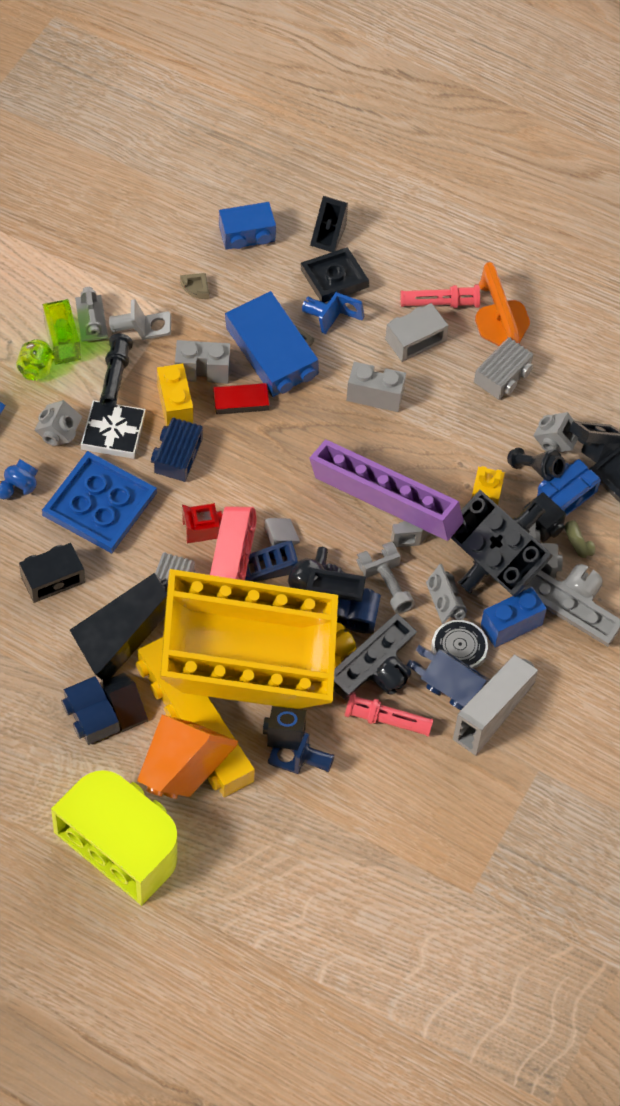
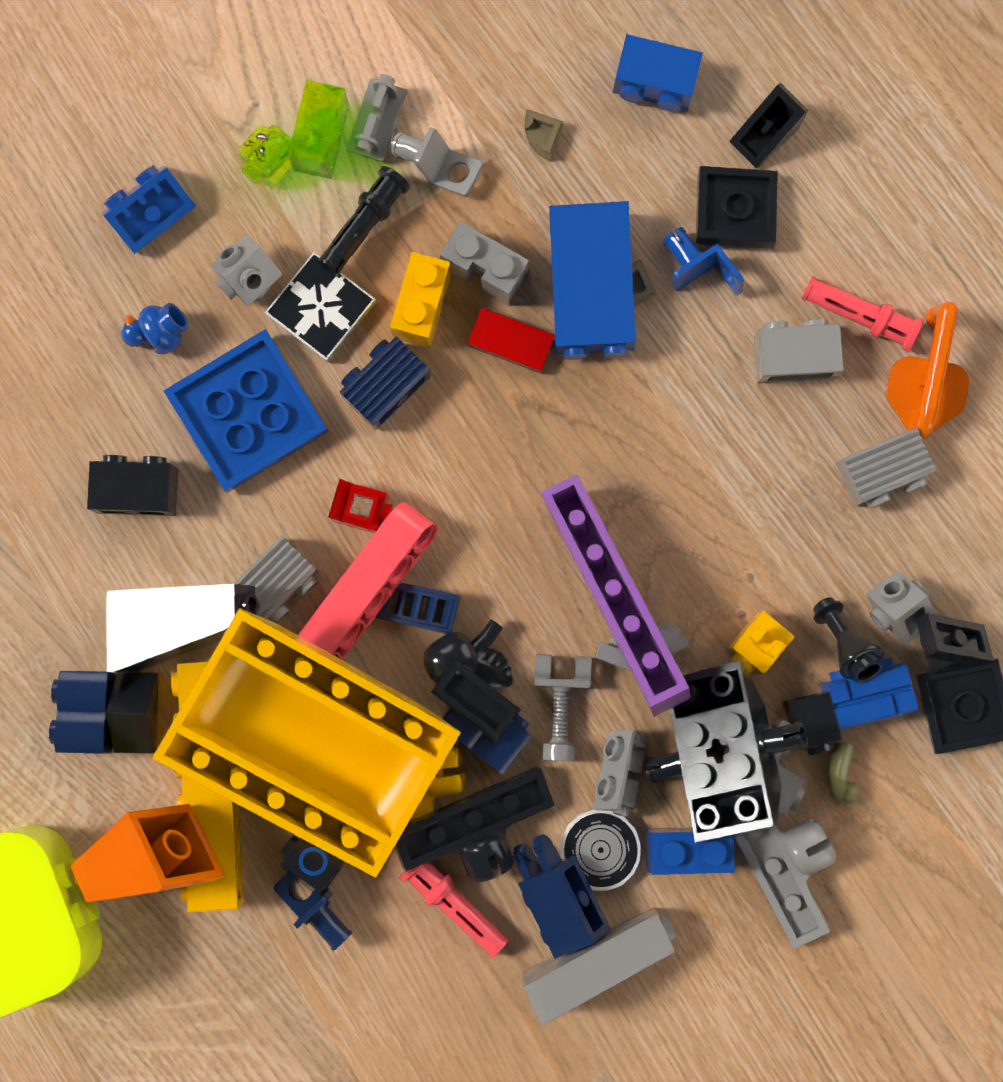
camera: 30 degrees right, 25 degrees up
(280, 531) = (458, 570): light grey slope -> none
(375, 388) = (691, 416): light grey brick -> none

